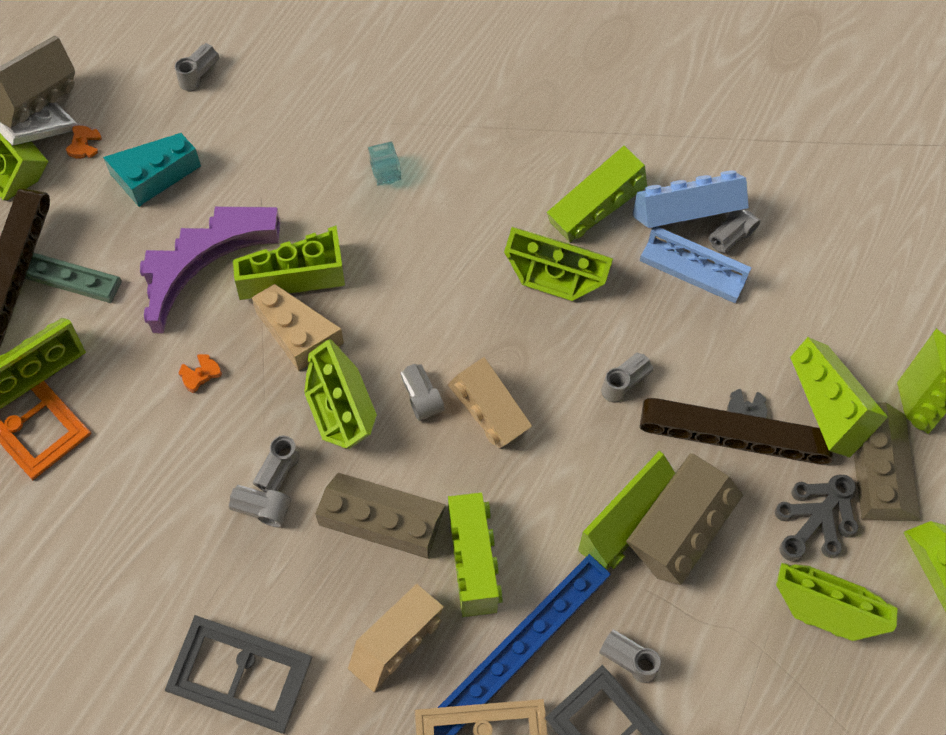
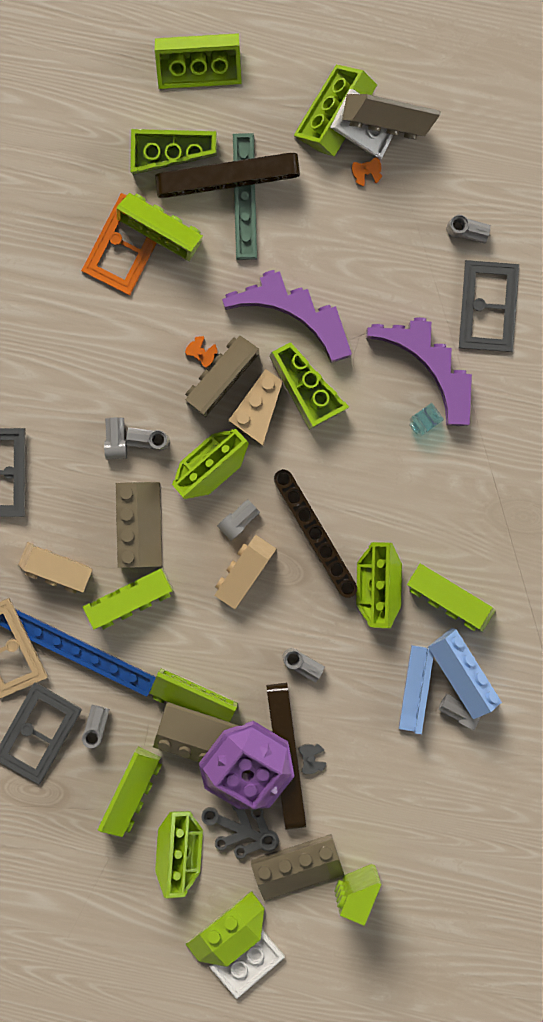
camera: 70 degrees right, 25 degrees up
(153, 166) = (357, 239): teal wedge -> none
(238, 351) = (222, 376): none -> dark tan slope
(278, 93) = (468, 303): none -> dark grey door
(325, 134) = (417, 341): none -> medium lavender arch
(460, 322) = (317, 544): none -> dark brown beam
(734, 638) = (129, 793): none -> lime slope
(741, 469) = (245, 749): none -> medium lavender piece
(837, 399) = (331, 821): lime wedge -> none

